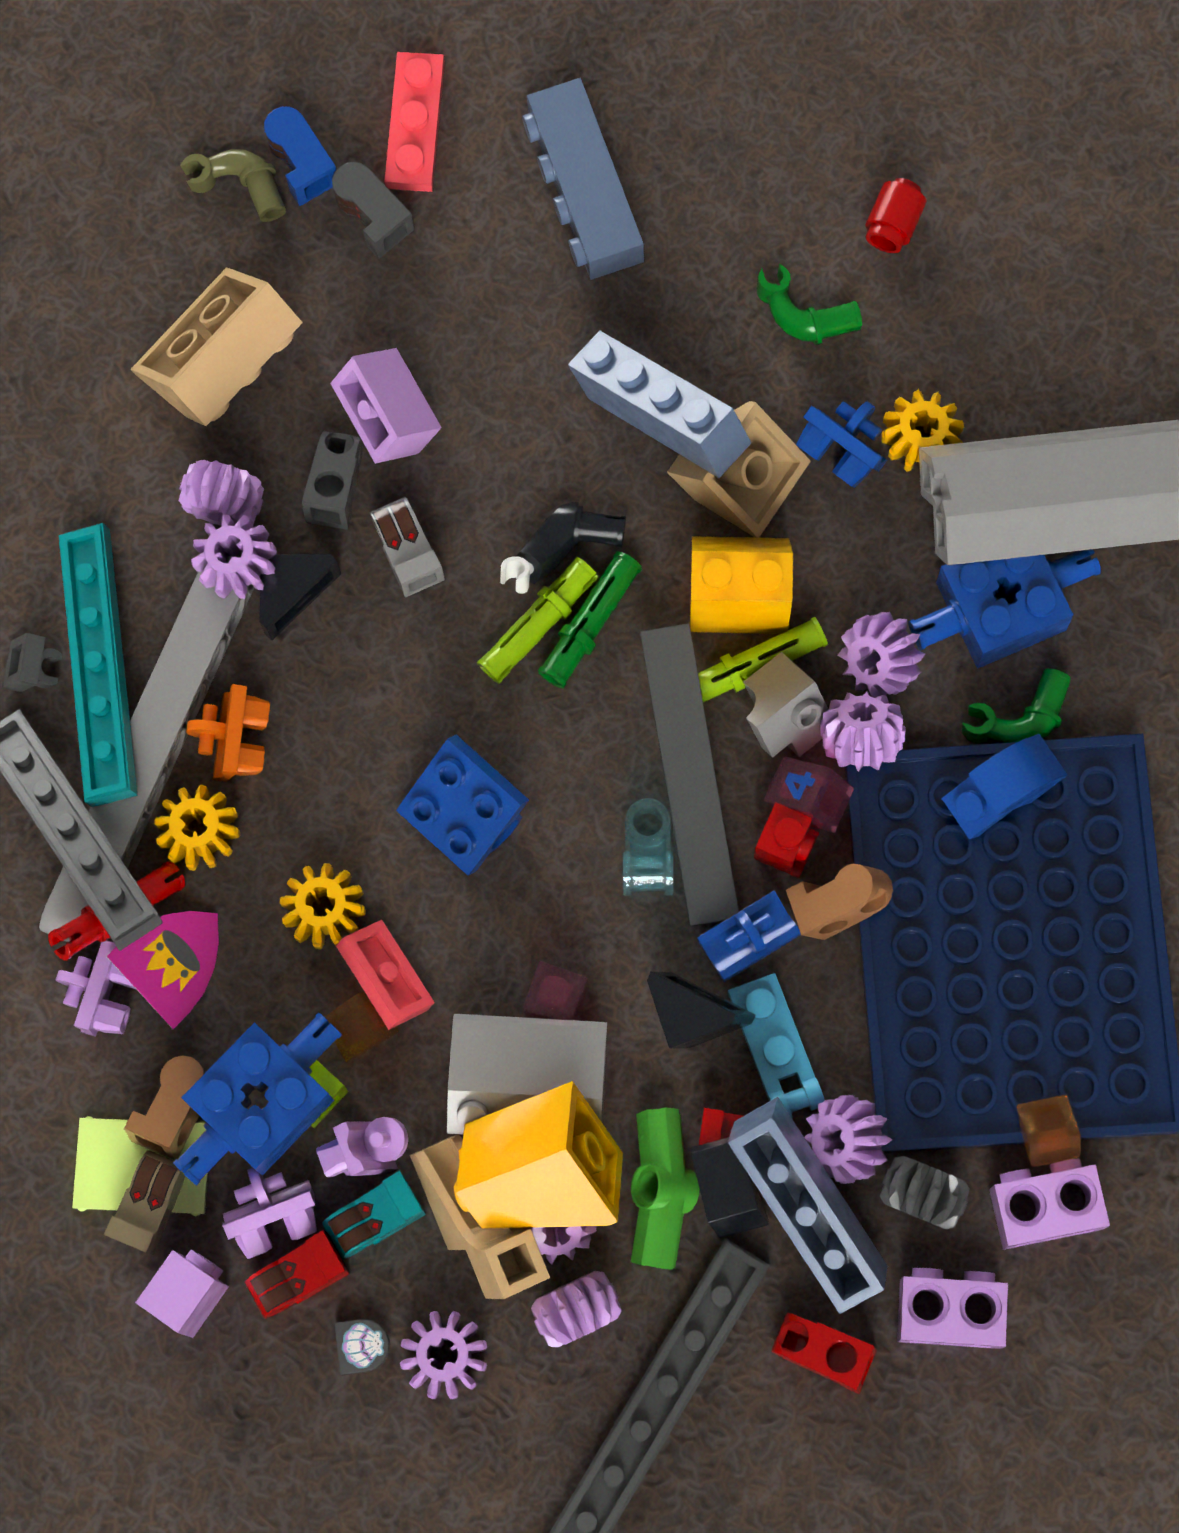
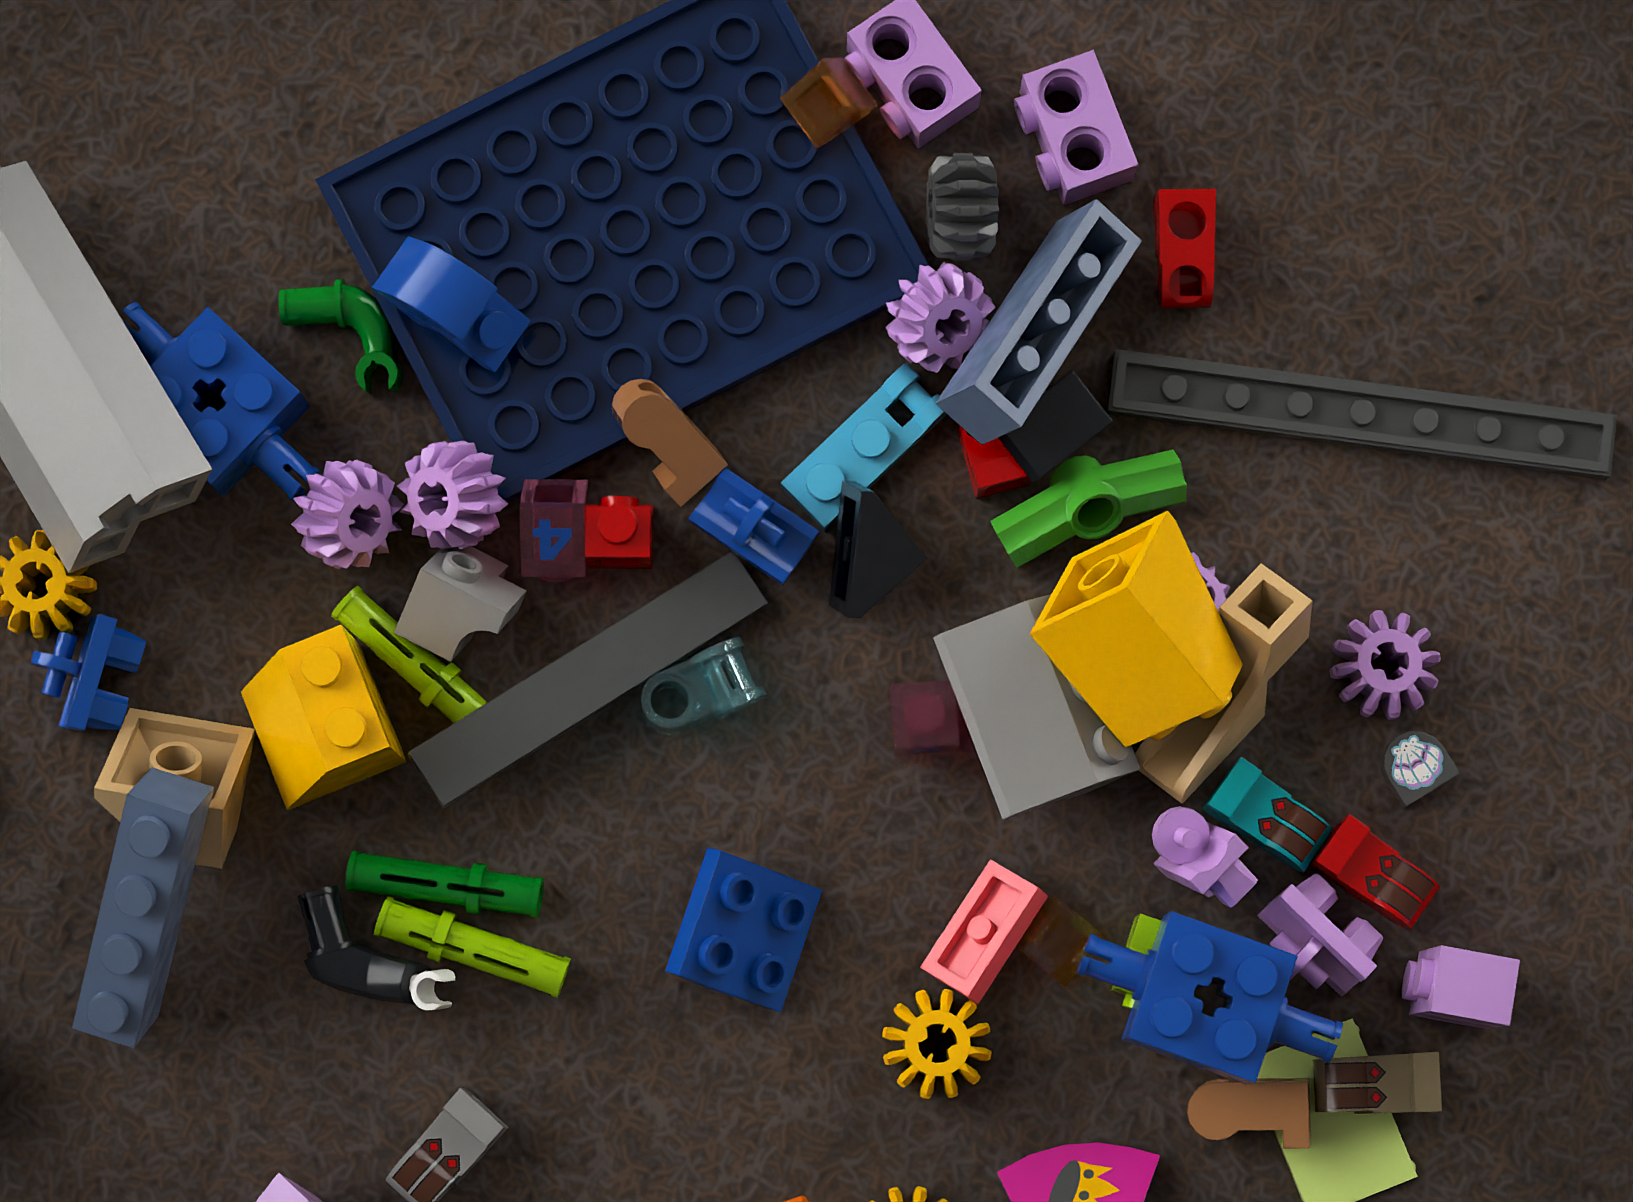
camera: 120 degrees left, 5 degrees up
(576, 1309) = (1269, 530): lavender gear -> none

